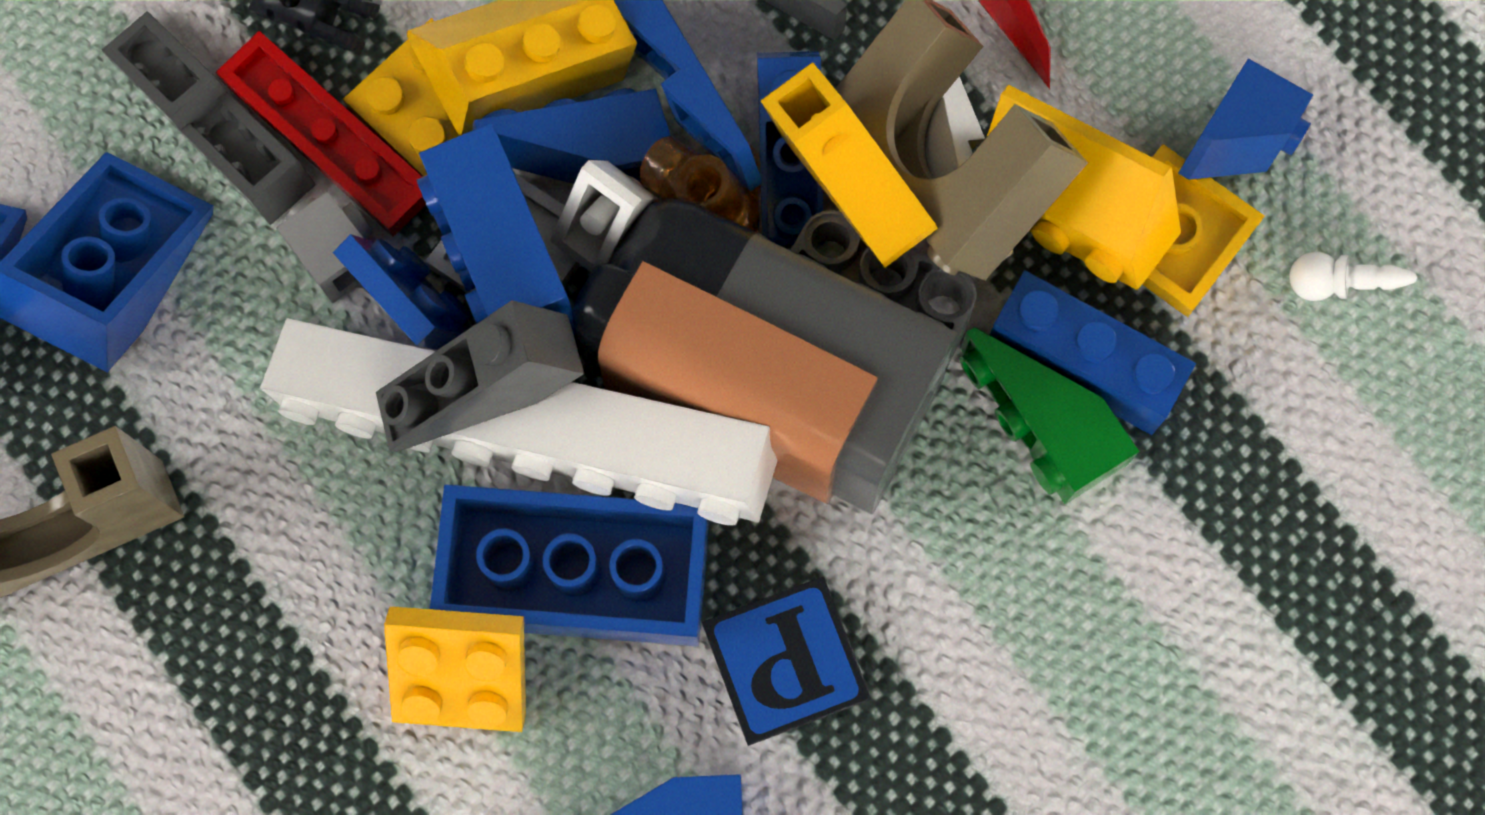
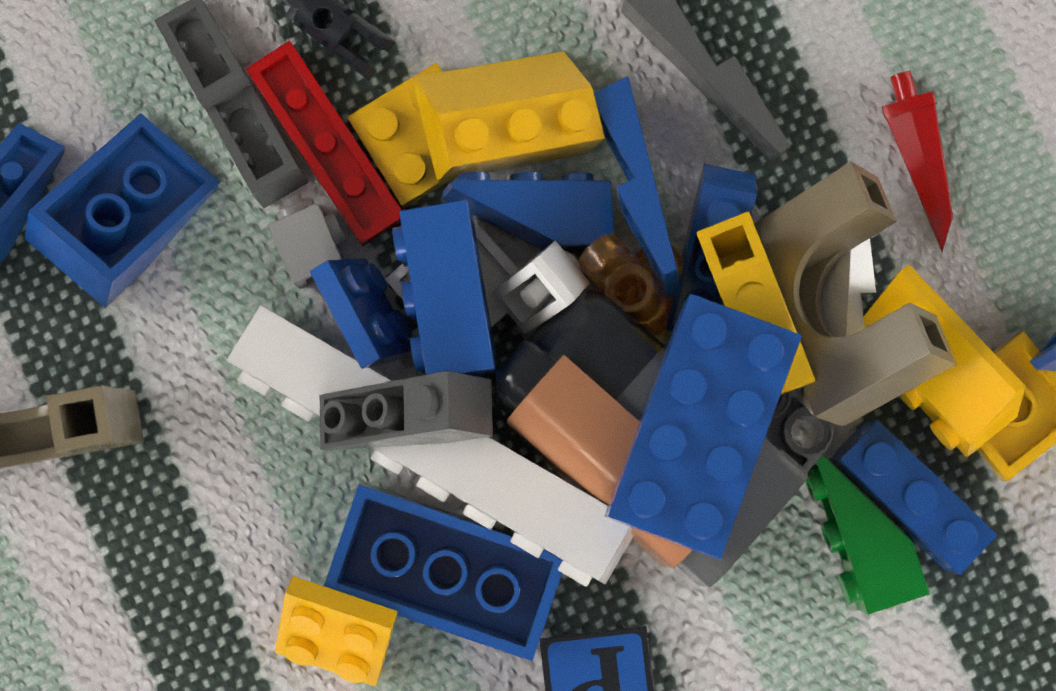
camera: 15 degrees right, 10 degrees up
(817, 294) = (703, 426): none -> blue brick

